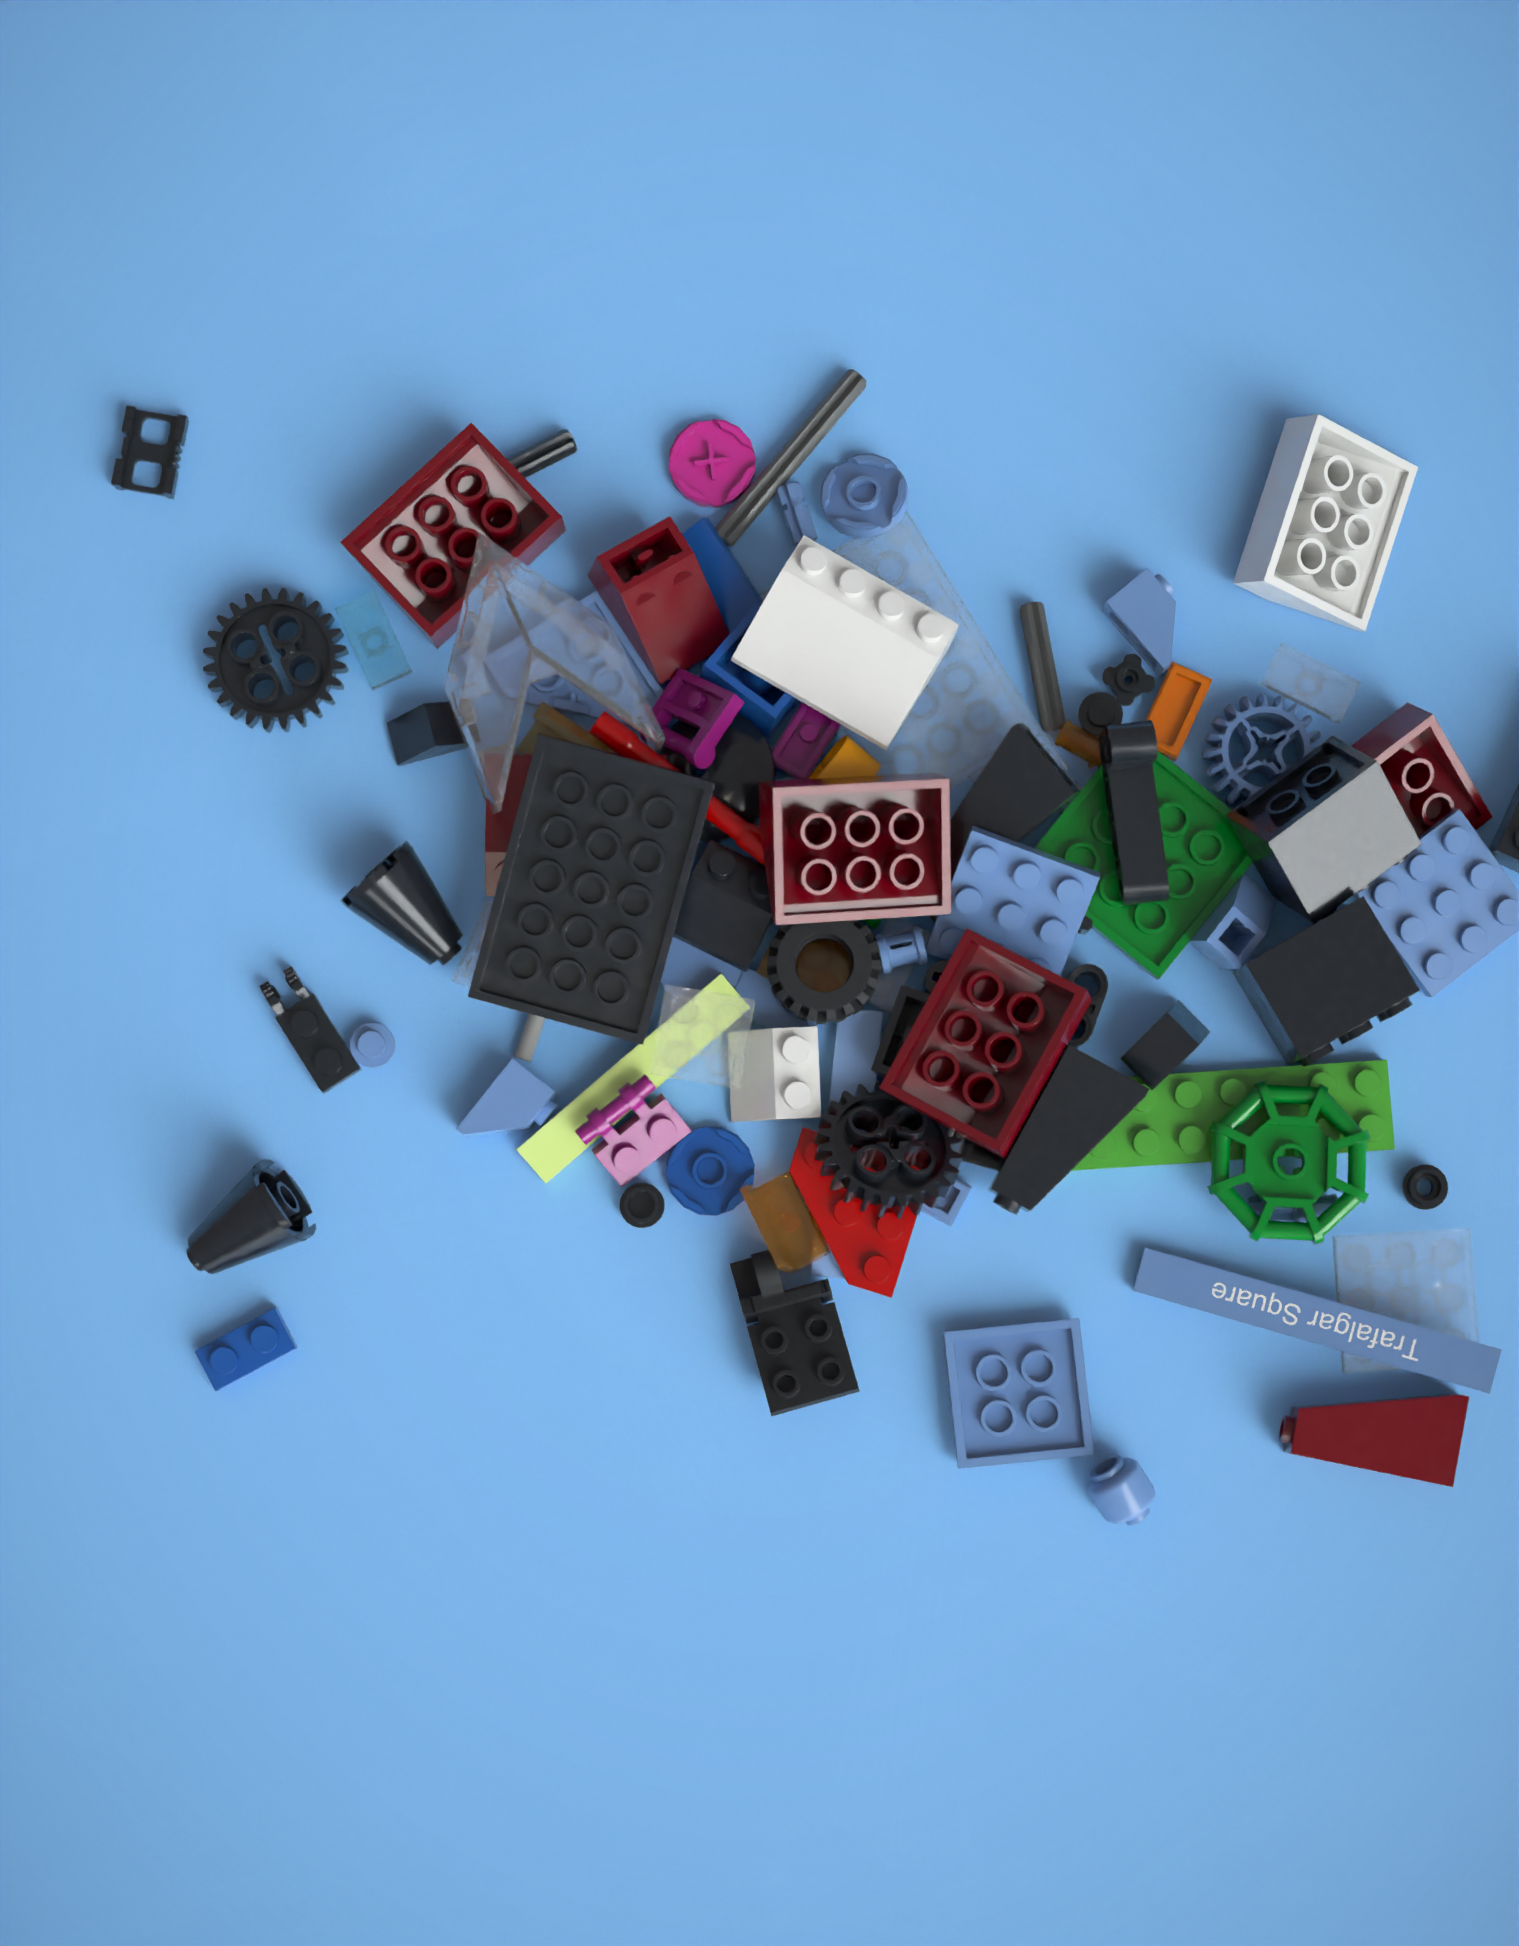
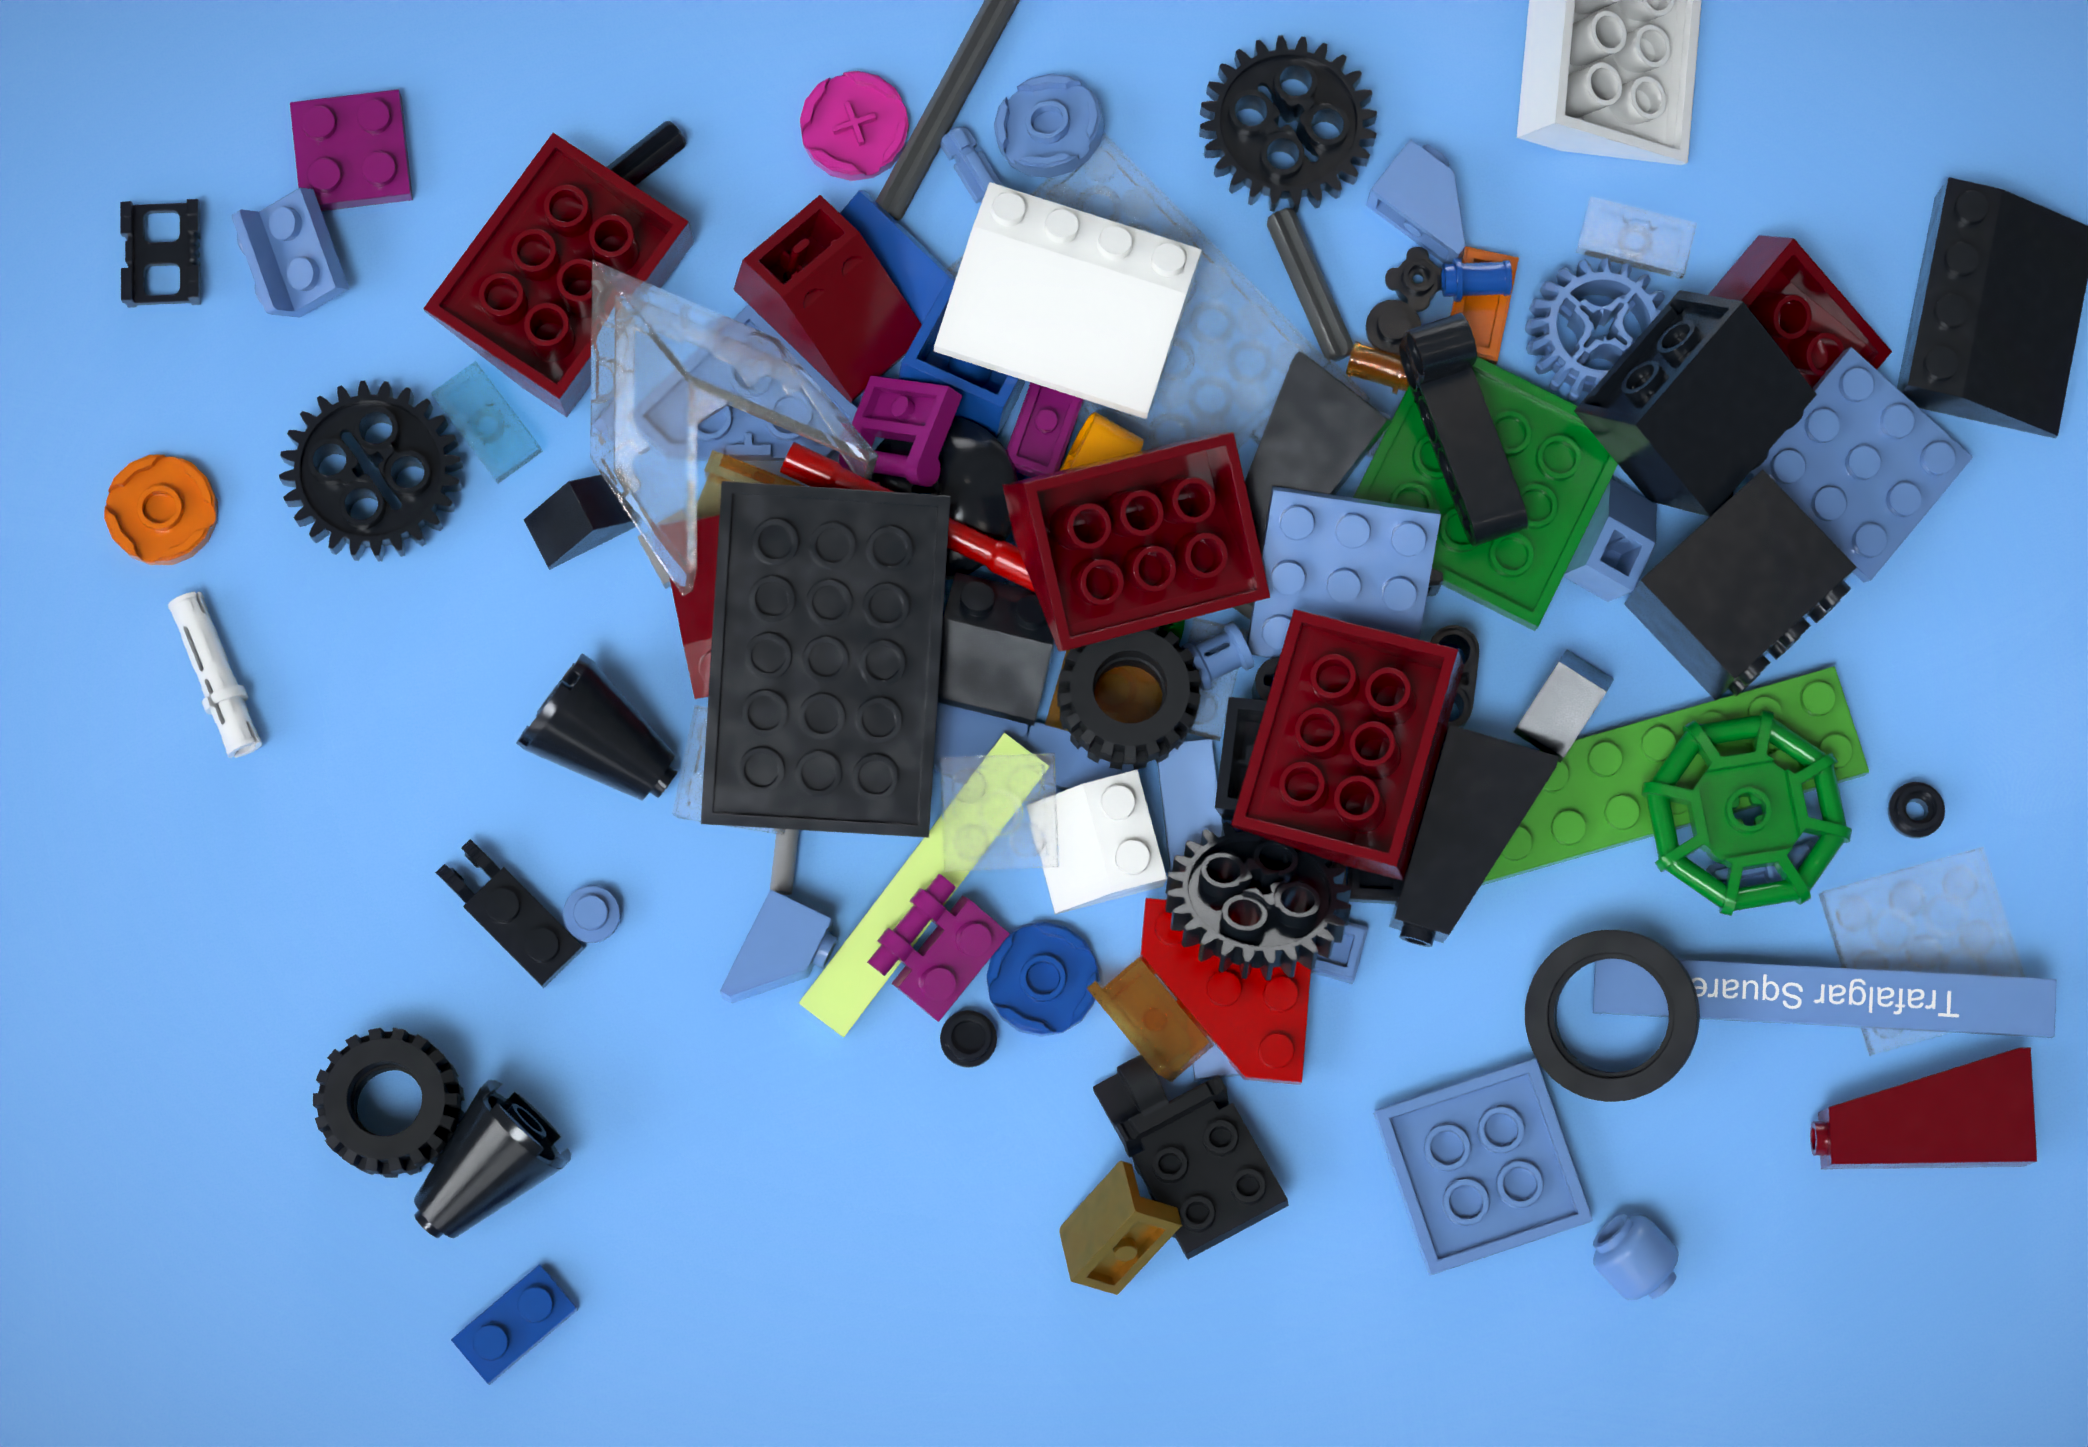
camera: 20 degrees left, 5 degrees down
(108, 655) = (161, 510): none -> orange tile
(124, 805) = (222, 694): none -> white pin
(147, 1152) = (348, 1075): none -> black tyre
(248, 475) = (290, 254): none -> medium blue bracket
(314, 401) = (352, 149): none -> magenta plate
(719, 1383) = (1115, 1232): none -> pearl gold panel
(1016, 546) = (1246, 148): none -> black gear
(1116, 1345) = (1545, 1035): none -> black tyre
(1173, 690) = (1475, 279): none -> blue pin

